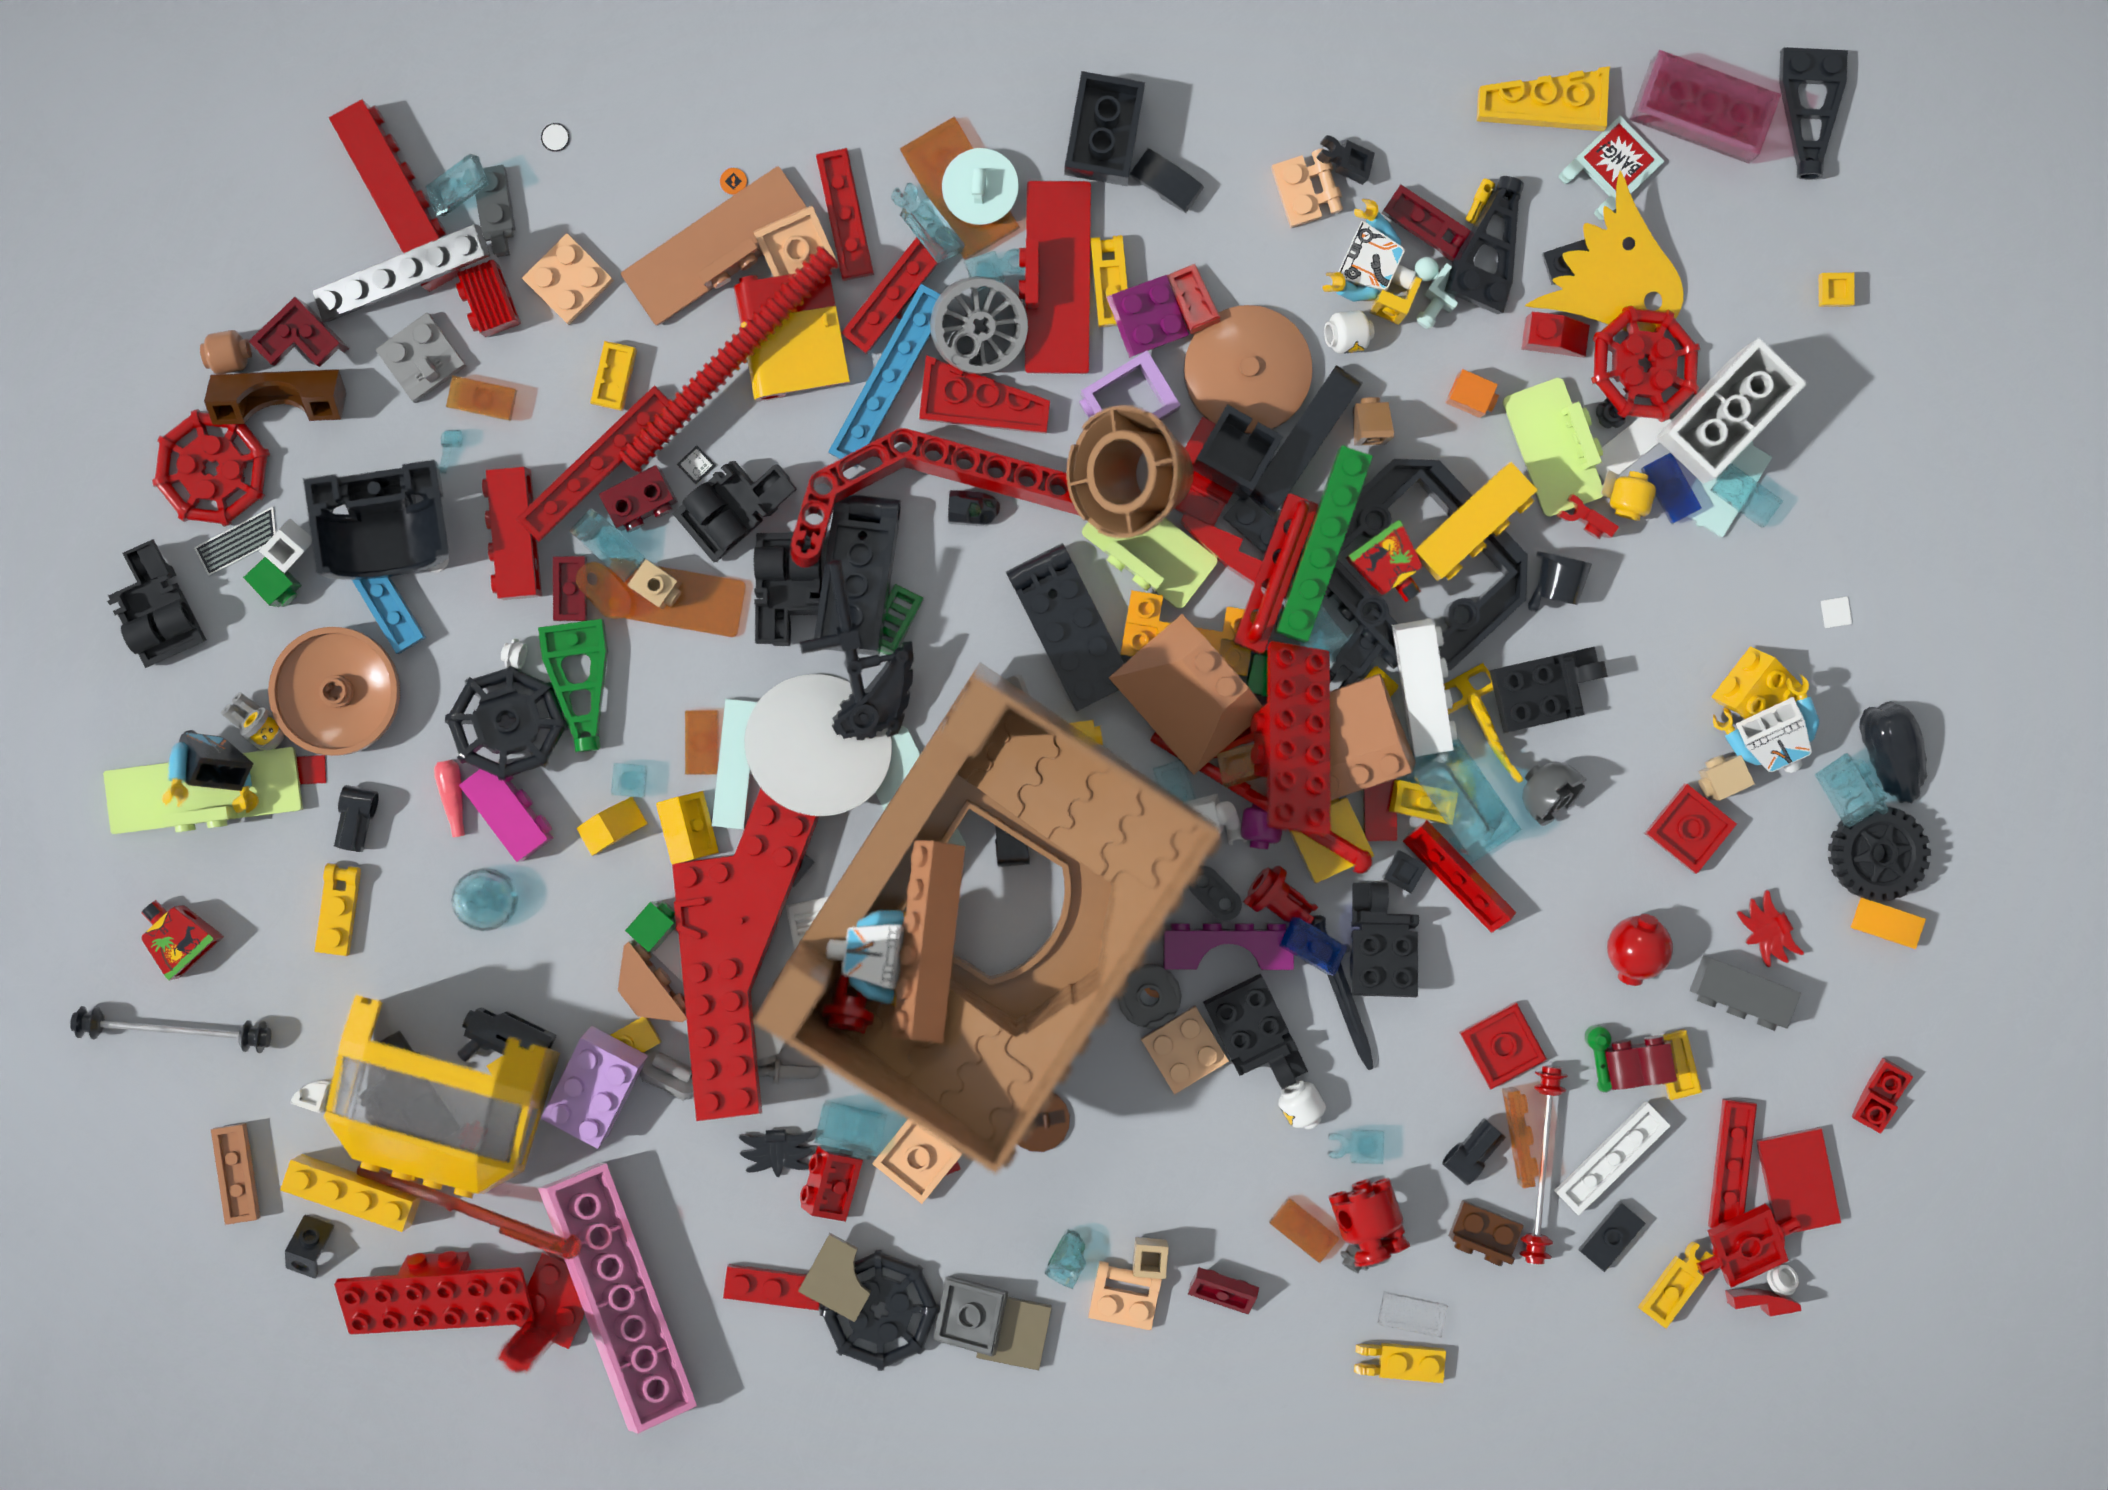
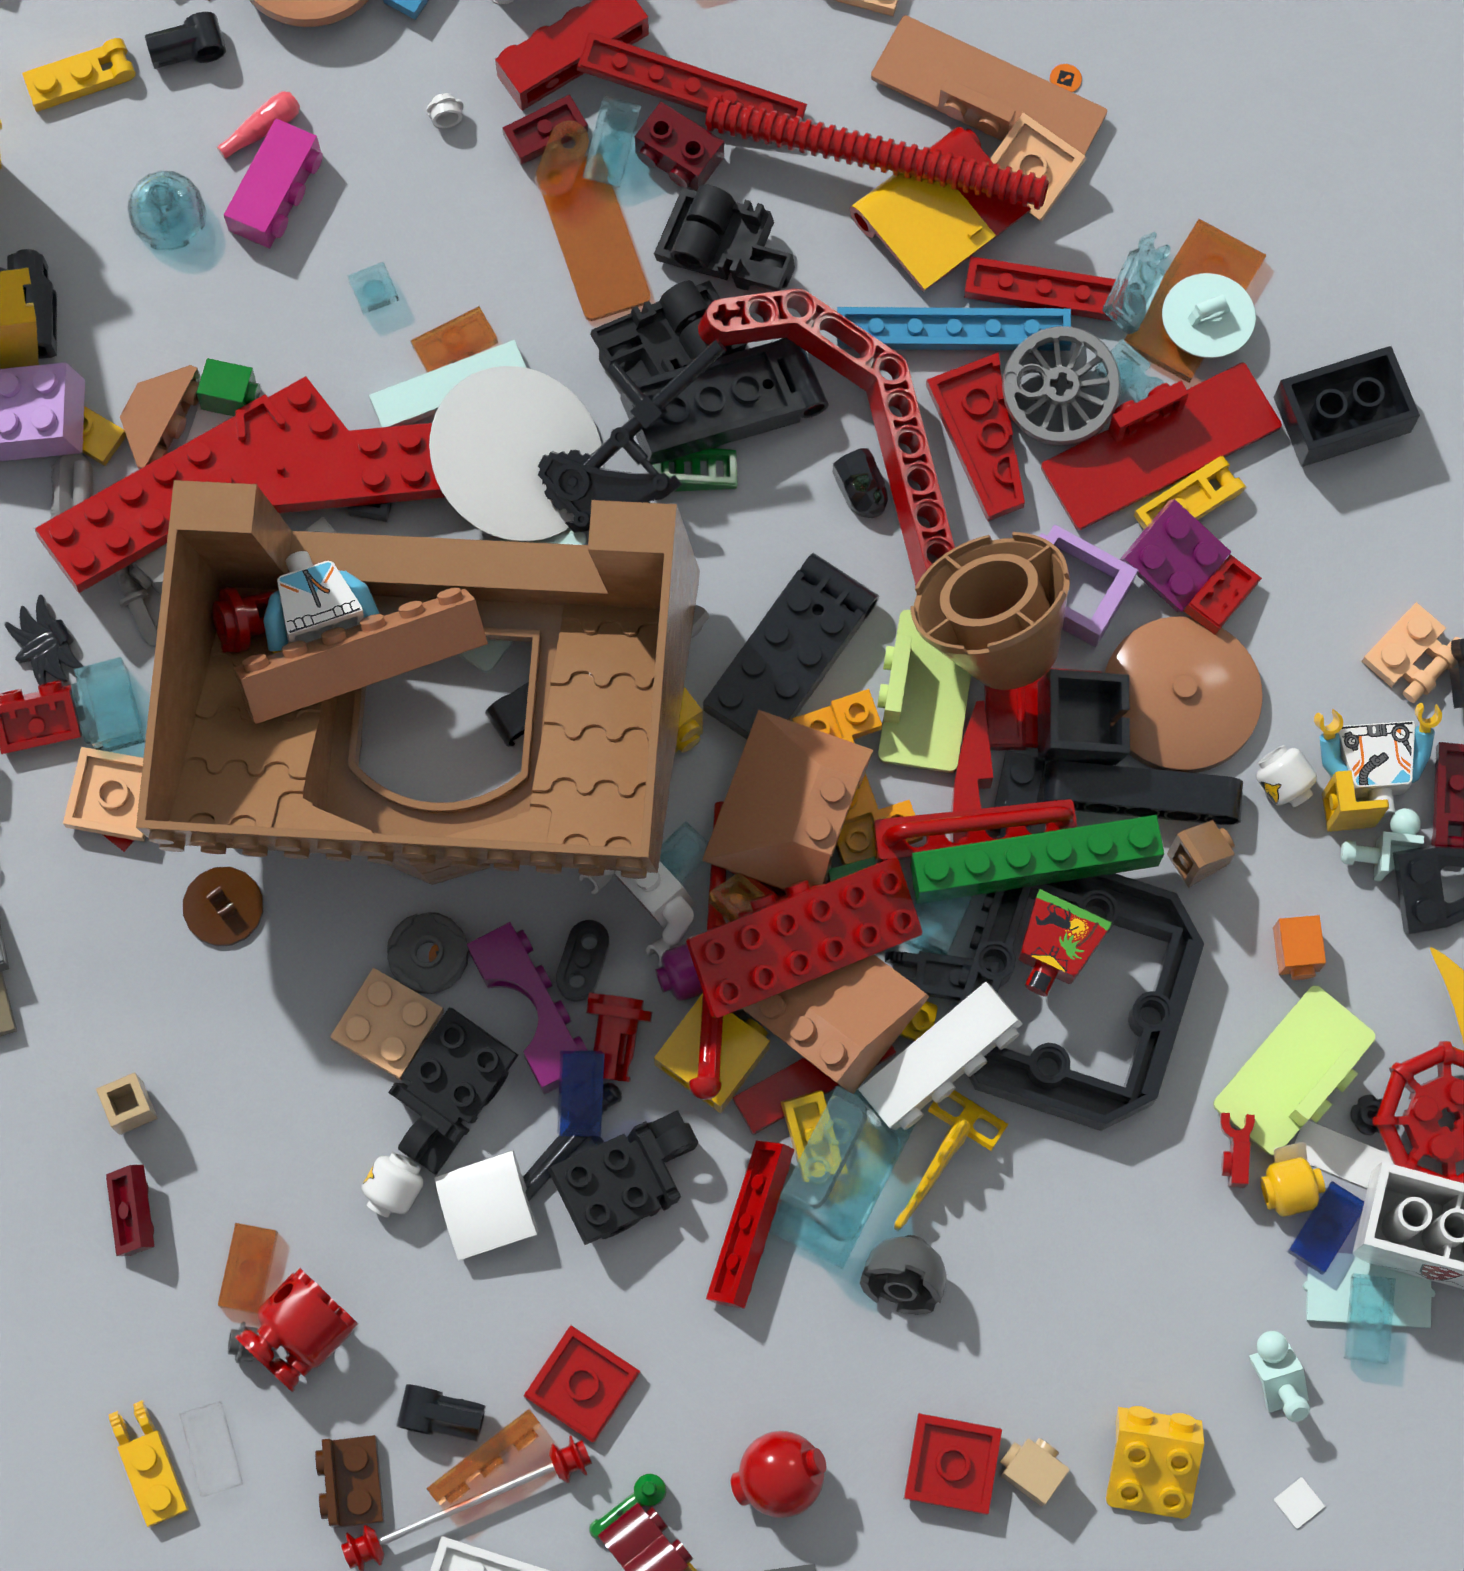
camera: 65 degrees right, 15 degrees down
(513, 739) = (356, 149): black plate -> none
(574, 640) = (490, 157): green plate -> none
(611, 825) = (315, 296): yellow slope -> none
(613, 376) = (793, 61): yellow plate -> none
(655, 585) = (597, 206): tan brick -> none
(687, 827) = (355, 372): yellow panel -> none
(696, 464) = (748, 188): sticker -> none
(844, 214) = (1097, 202): red tile -> none
(1067, 1259) = (78, 1015): clear light blue rock -> none
(1122, 1305) = (56, 1109): light nougat plate -> none
(1167, 180) = (1332, 502): black slope -> none
(1350, 1048) = (485, 1205): none -> white slope
(1363, 1146) = (379, 1282): clear light blue plate -> none
(1404, 871) = (722, 1159): black plate -> none
(1475, 521) = (1158, 1013): yellow brick -> none
(1544, 688) = (1013, 1203): black plate -> none
(1555, 334) = (1419, 1003): red slope -> none
(1559, 579) = (1151, 1153): black hat -> none
(1753, 577) = (1281, 1376): none -> light aqua piece
(1776, 735) = (1116, 1497): torso -> none

